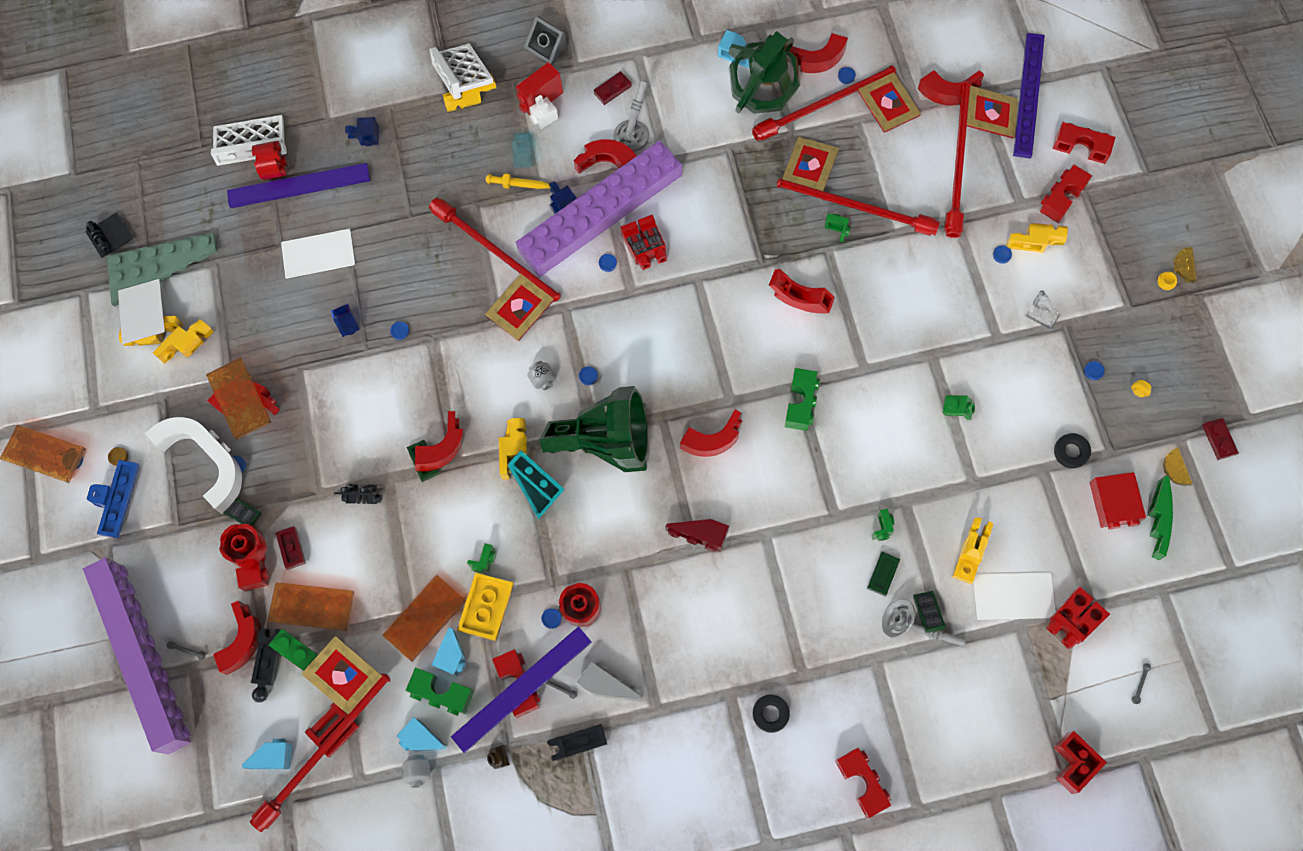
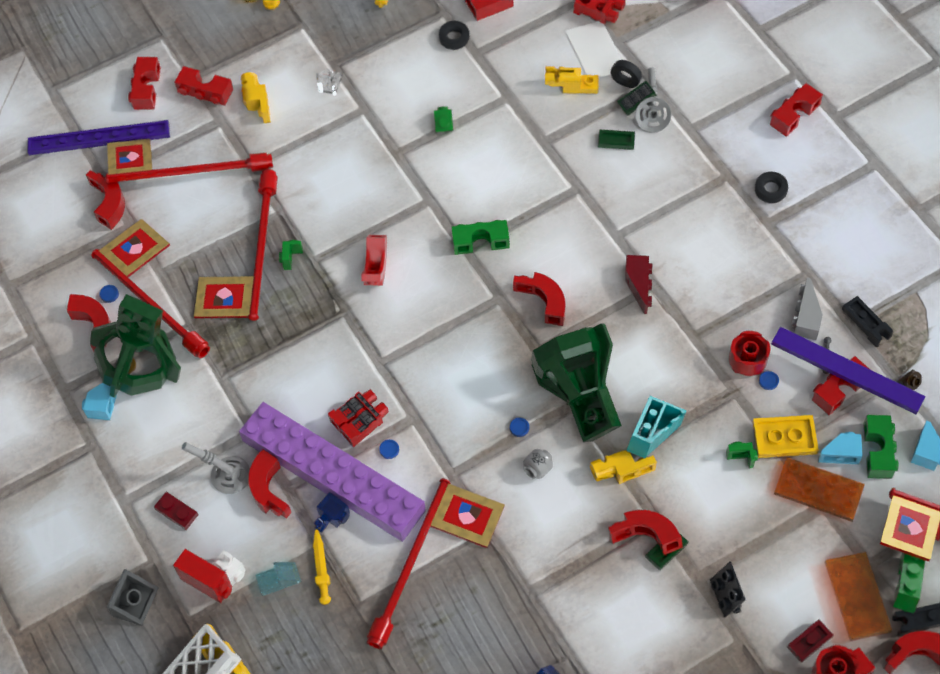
camera: 110 degrees left, 10 degrees down
(399, 330) = (534, 629): blue piece -> none
(886, 523) = (575, 144): green bracket -> none
(962, 609) = (628, 67): none -> black tyre
(1002, 254) = (278, 122): blue piece -> none
(1094, 370) = (373, 36): blue piece -> none

